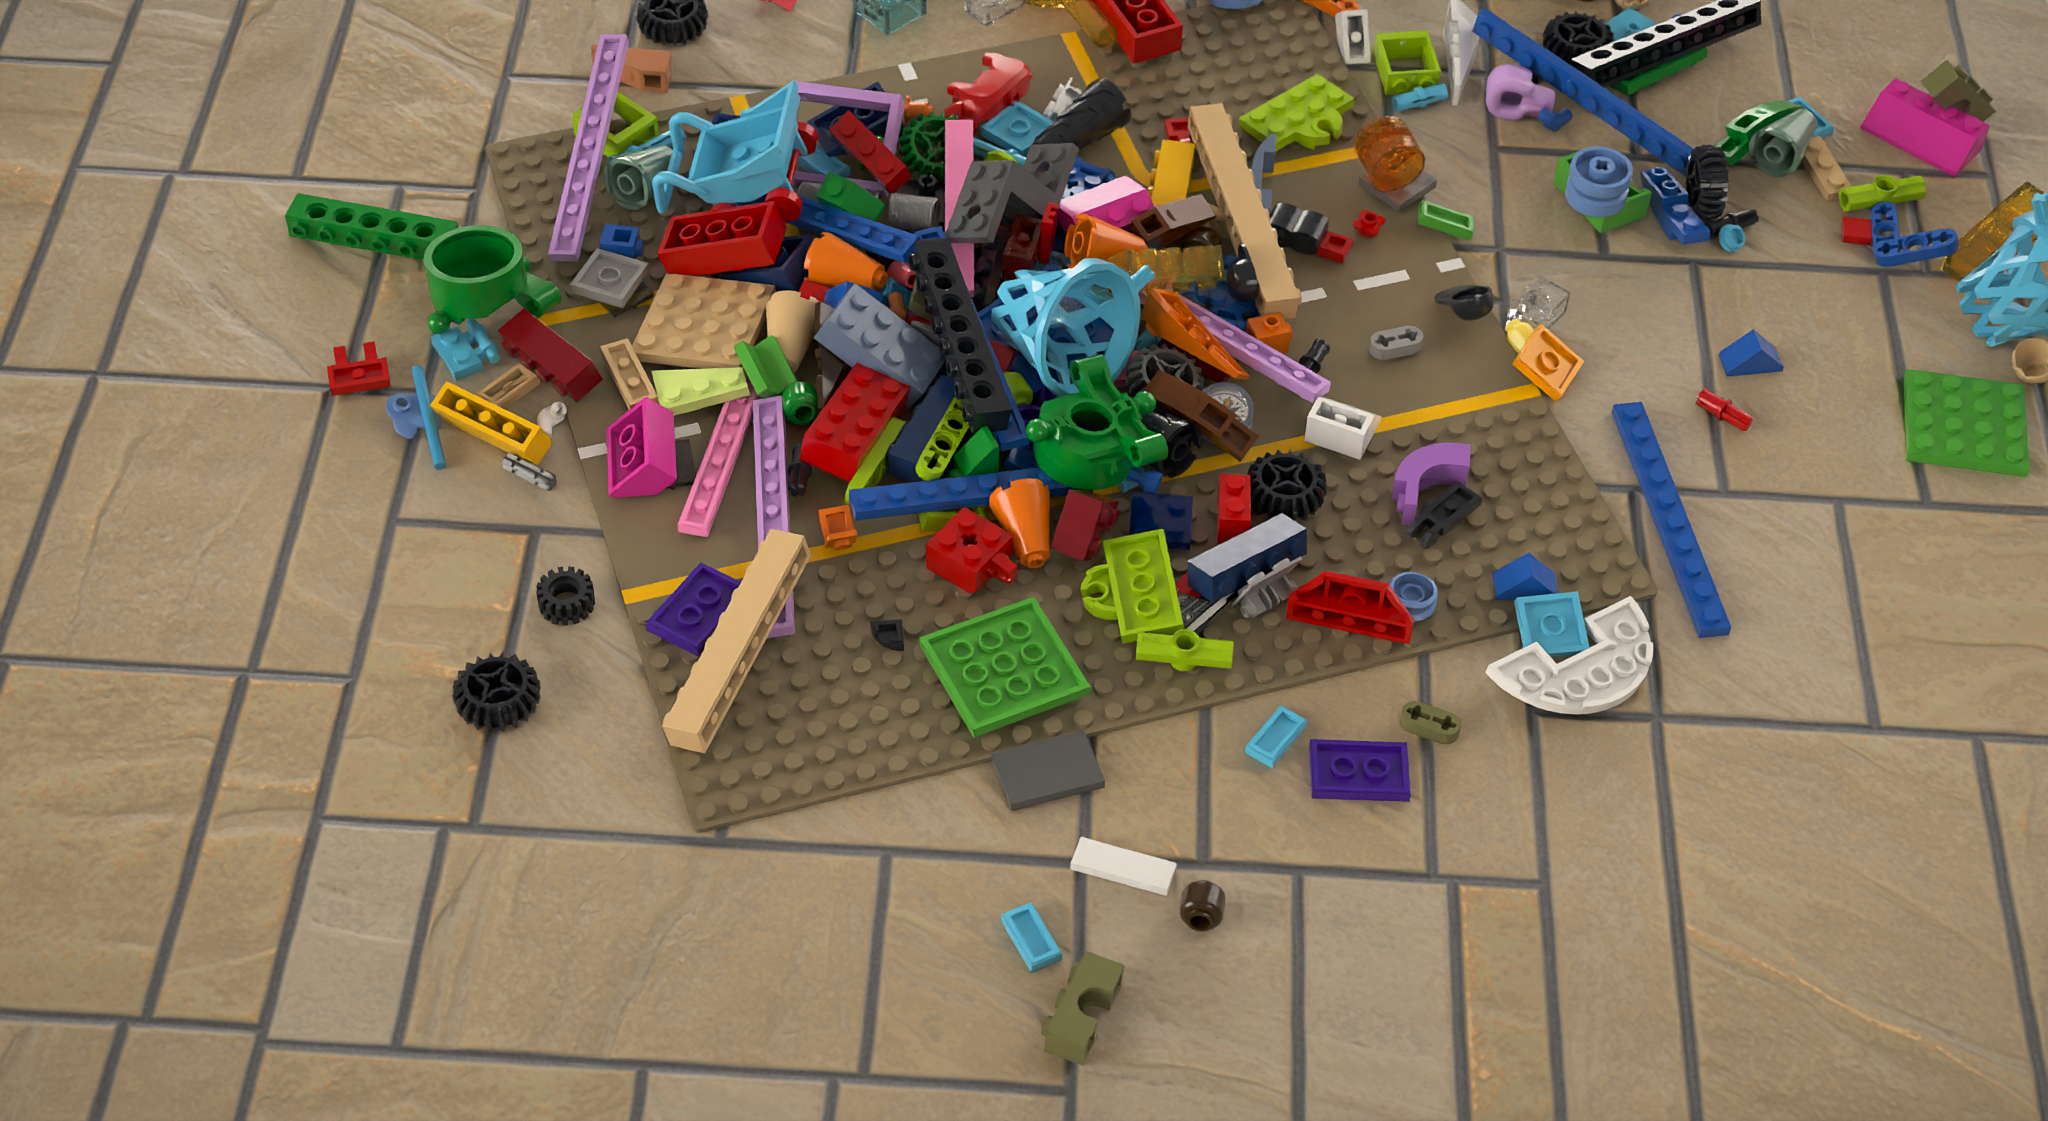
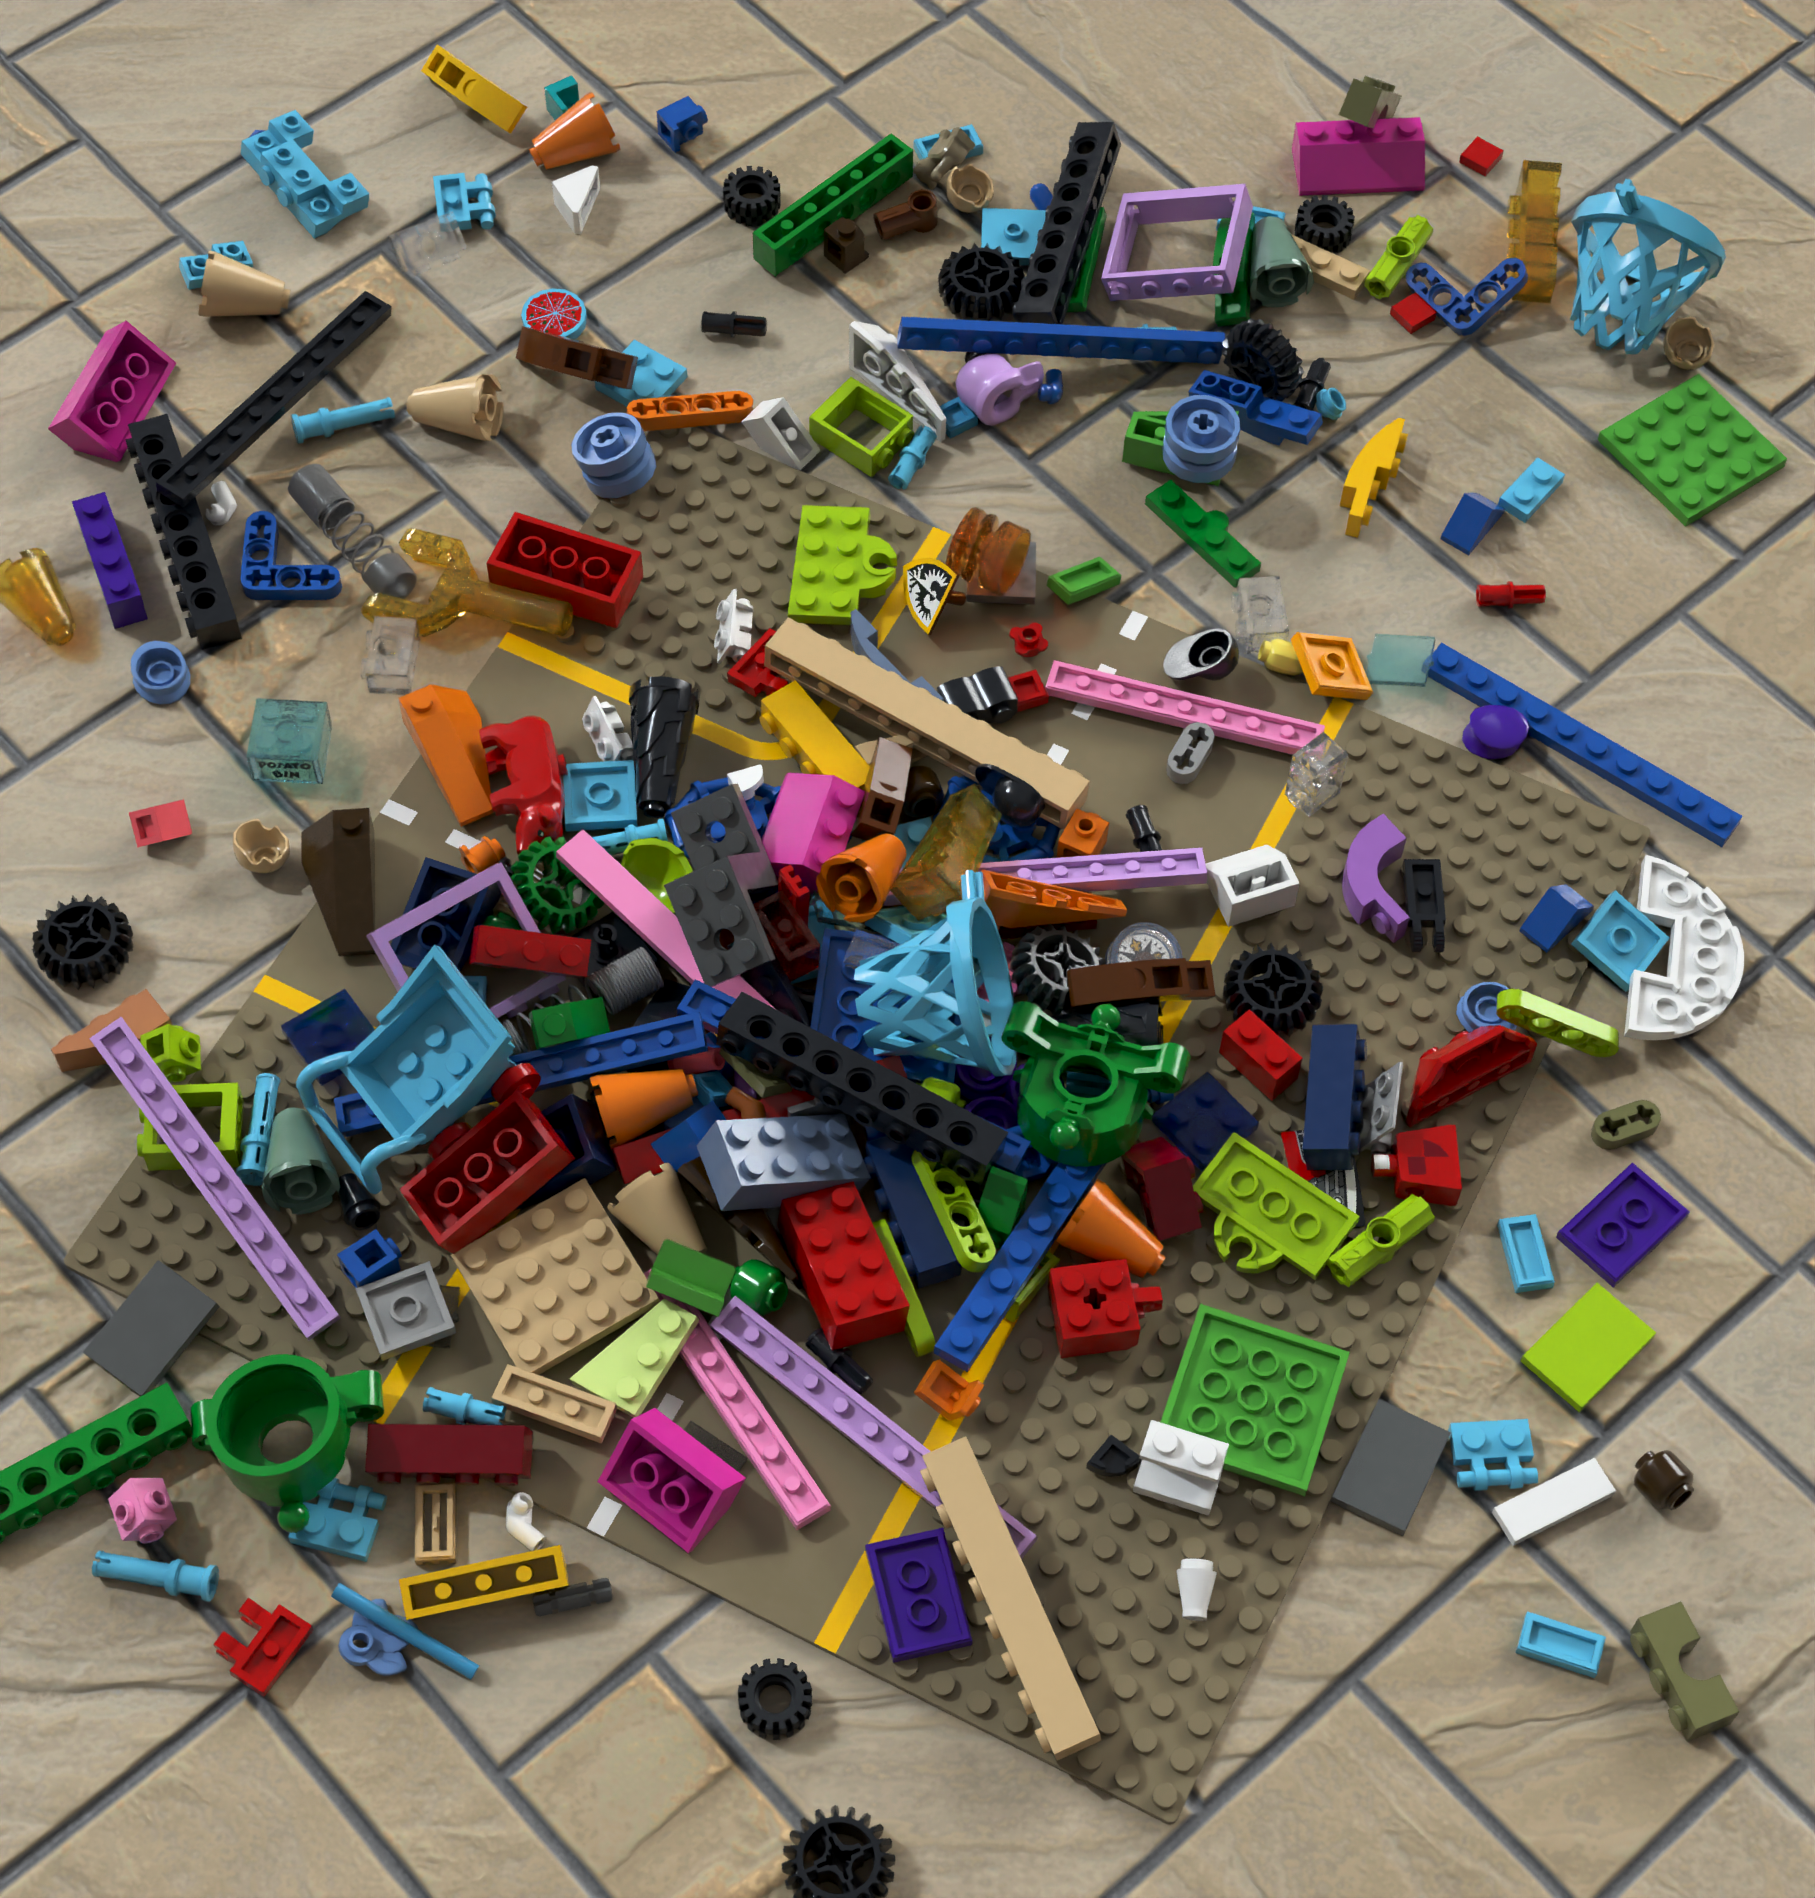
camera: 45 degrees left, 10 degrees up
(356, 310) = (174, 1577): none -> medium azure pin
(378, 268) = (142, 1509): none -> bright pink brick
(486, 199) = (151, 1329): none -> dark grey tile
(583, 341) = (463, 1408): none -> medium azure pin
(648, 88) = (173, 1051): none -> lime brick
(648, 219) = (357, 1204): none -> black cone
(812, 34) = (260, 847): none -> tan hair
(844, 66) = (341, 871): none -> dark brown wedge
(850, 724) = (1195, 1586): none -> white cone
(915, 658) = (1180, 1467): none -> white panel
(970, 39) = (448, 738): none -> orange wedge
(1101, 169) = (748, 780): none -> white tile
(1122, 806) = (1492, 1443): none -> medium azure plate
(1203, 96) = (733, 616): none -> white hinge
(1251, 810) = (1588, 1347): none -> lime tile
(1263, 635) = (1423, 1165): none -> red torso
(1340, 158) = (928, 588): none -> shield
(1415, 312) = (1179, 708): none -> bright pink tile
(1444, 628) = (1557, 1023): none -> lime beam
(1453, 396) = (1316, 774): none -> clear brick
(1474, 97) = (958, 417): none -> dark azure tile
(1559, 248) = (1203, 532): none -> green hinge
(1601, 392) = (1400, 660): none -> clear light blue piece
(1615, 468) = (1495, 731): none -> dark purple piece
(1713, 284) = (1372, 472): none -> yellow slope
(1777, 85) = (1177, 206): none -> lavender window
(1816, 369) = (1531, 490): none -> medium azure plate
(1864, 144) = (1325, 211): none -> black tyre
(2016, 177) = (1481, 156): none -> red tile

